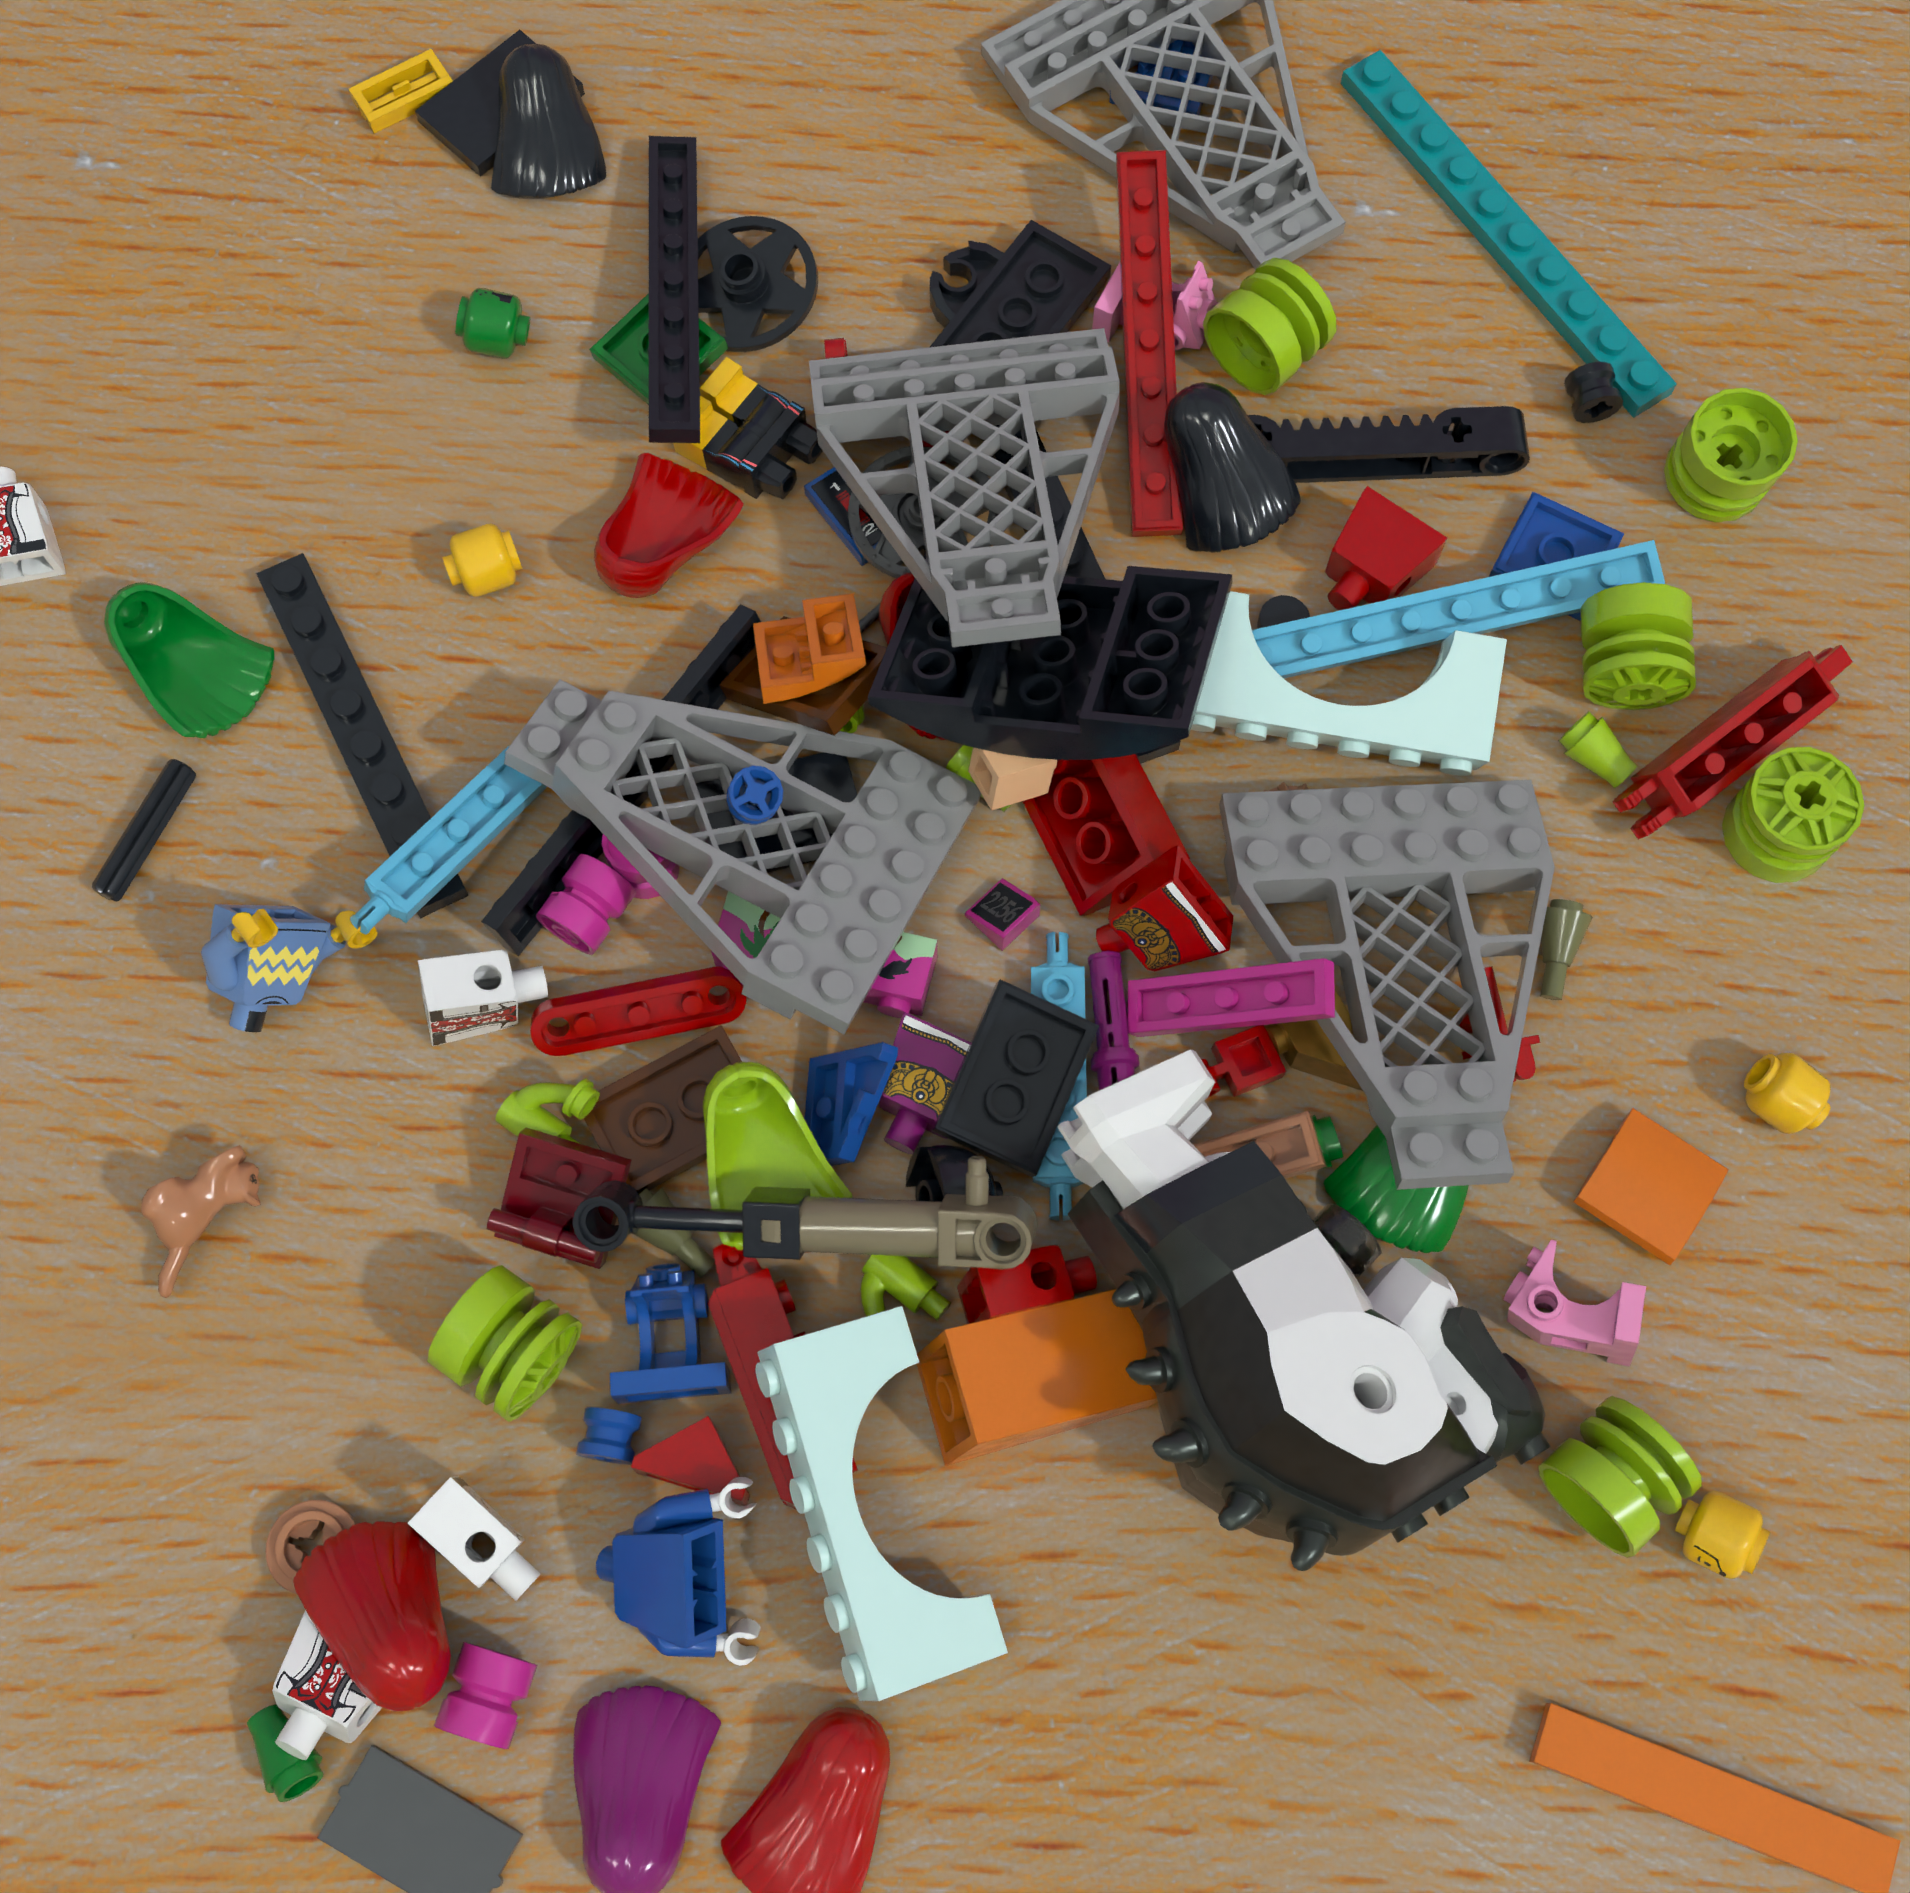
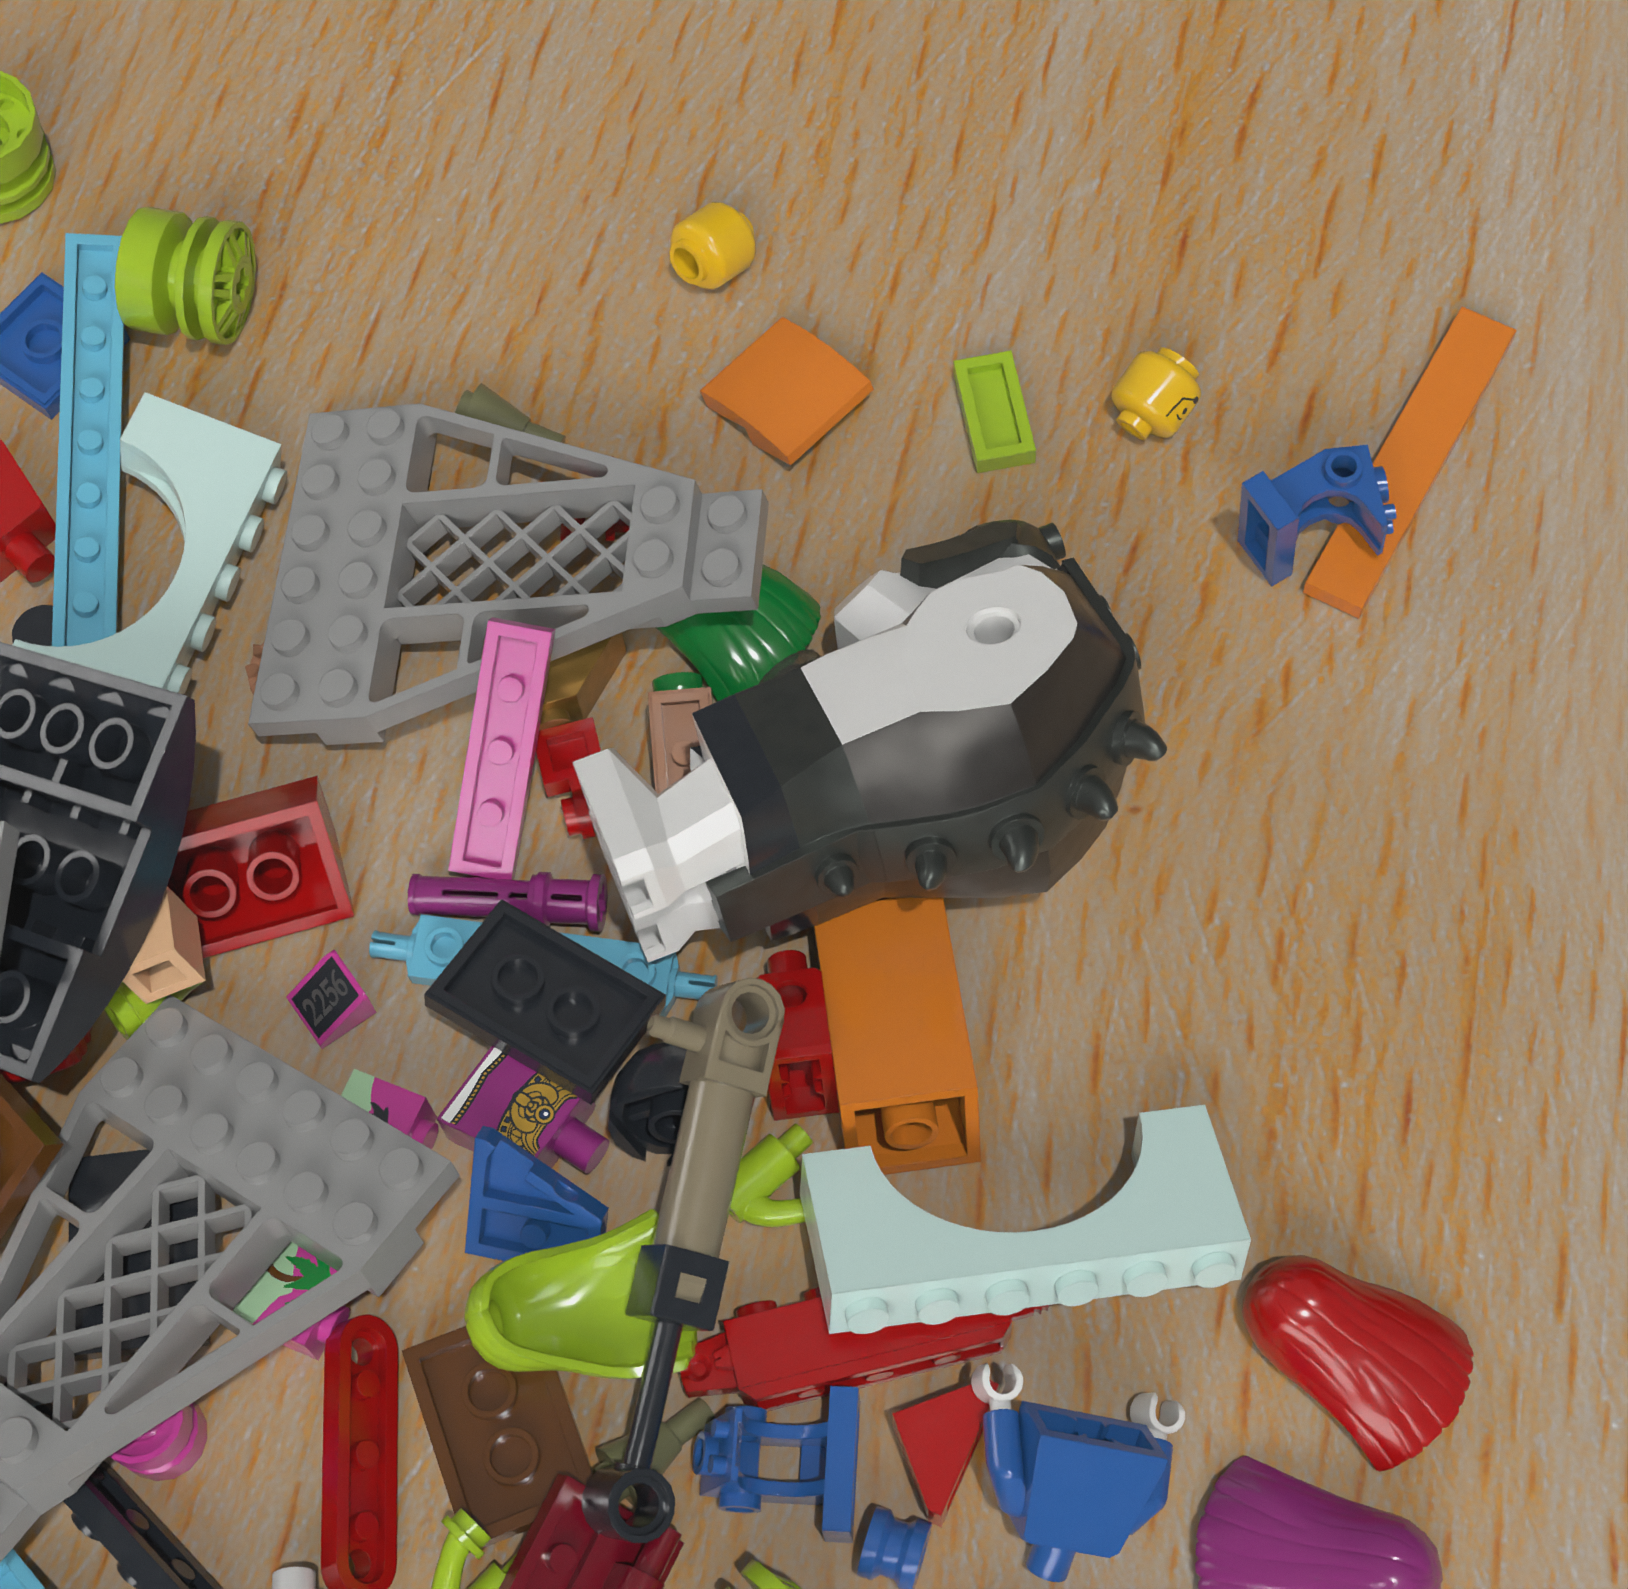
camera: 75 degrees left, 5 degrees down
(589, 898) = (207, 1513): dark pink wheel -> none
(758, 782) = (120, 1231): blue wheel -> none
(1167, 915) = (383, 807): red torso -> none
(1597, 749) = (288, 346): lime cone -> none
(1599, 1329) = (938, 448): bright pink tile -> none
(1611, 1667) = (1283, 507): none -> blue tile
(1620, 1476) = (1089, 466): lime wheel -> none
(1677, 1379) = (994, 412): none -> lime tile
(1734, 738) = (316, 213): red hinge -> none
(1778, 836) = (414, 175): lime wheel -> none

